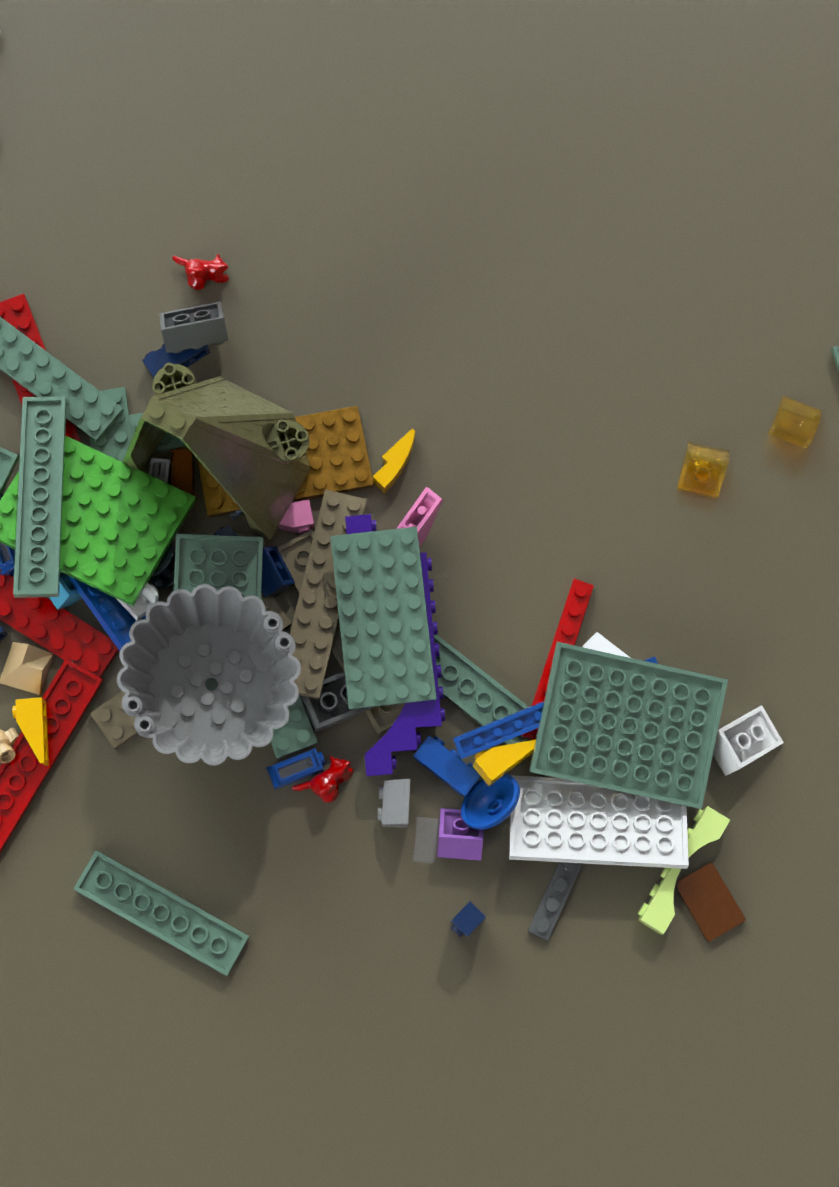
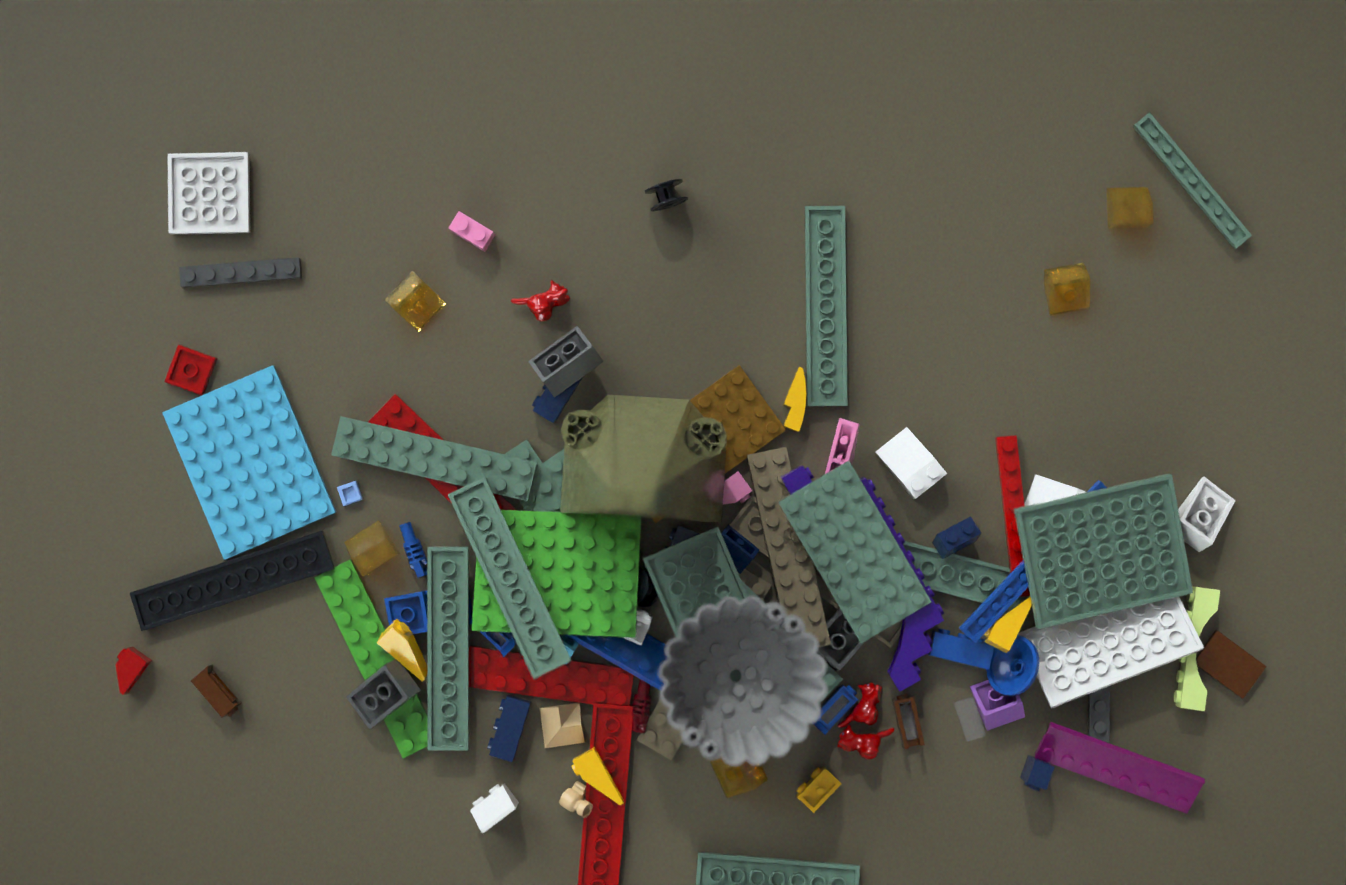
camera: 20 degrees left, 10 degrees up
(83, 220) = (415, 301): none -> clear yellow slope
(107, 686) = (641, 707): none -> dark red hinge
(166, 180) = (471, 231): none -> bright pink brick
(175, 787) = (738, 778): none -> clear yellow slope
(243, 840) = (818, 788): none -> yellow bracket
(310, 816) = (865, 744): none -> red animal
(361, 219) = (666, 195): none -> black piece
(362, 813) = (908, 721): none -> reddish brown window
(395, 803) = (932, 701): light grey slope -> none
(464, 388) = (826, 306): none -> sand green plate
(479, 568) = (911, 463): none -> white slope
(490, 654) = (956, 537): none -> dark blue brick
(554, 954) = (1119, 767): none -> magenta plate

